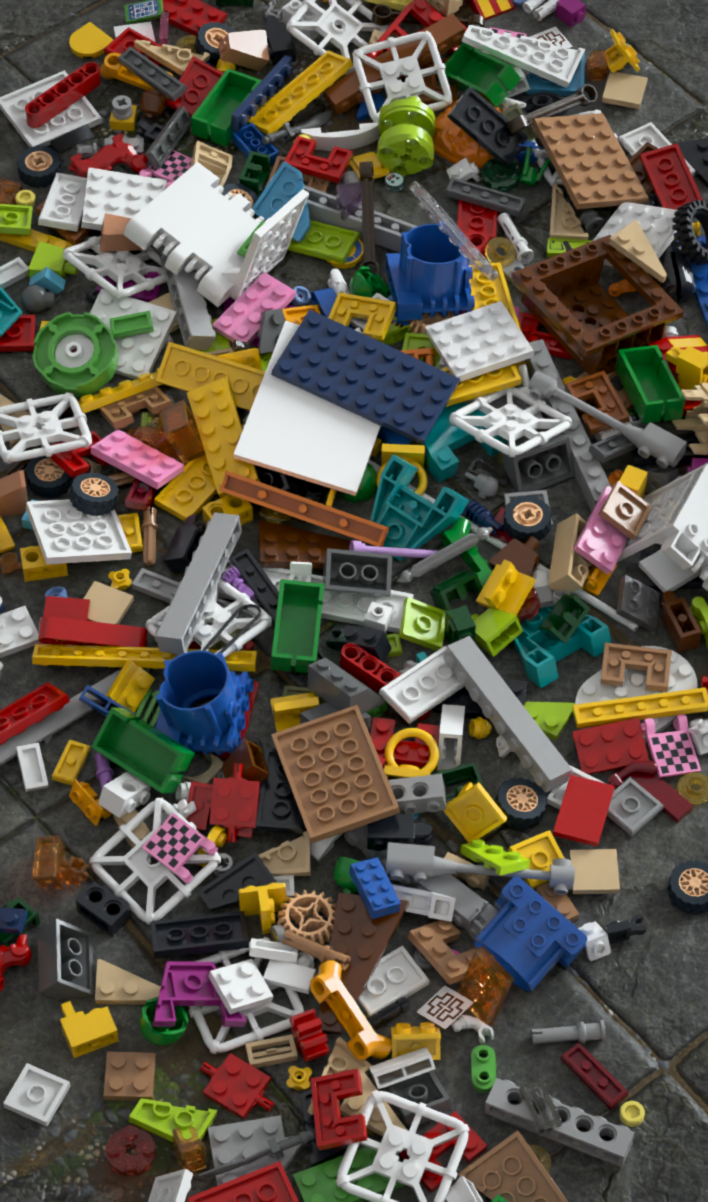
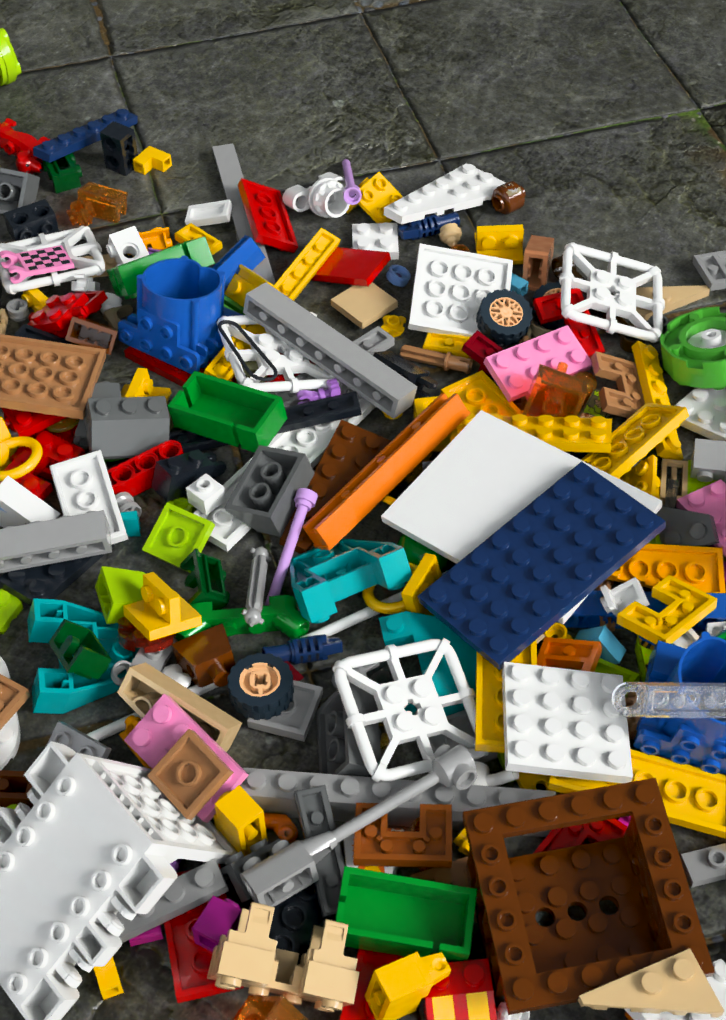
camera: 115 degrees right, 5 degrees down
(89, 633) = (326, 270): red beam -> none
(301, 571) = (294, 440): white bracket -> none
(458, 625) = (140, 545): dark green window -> none

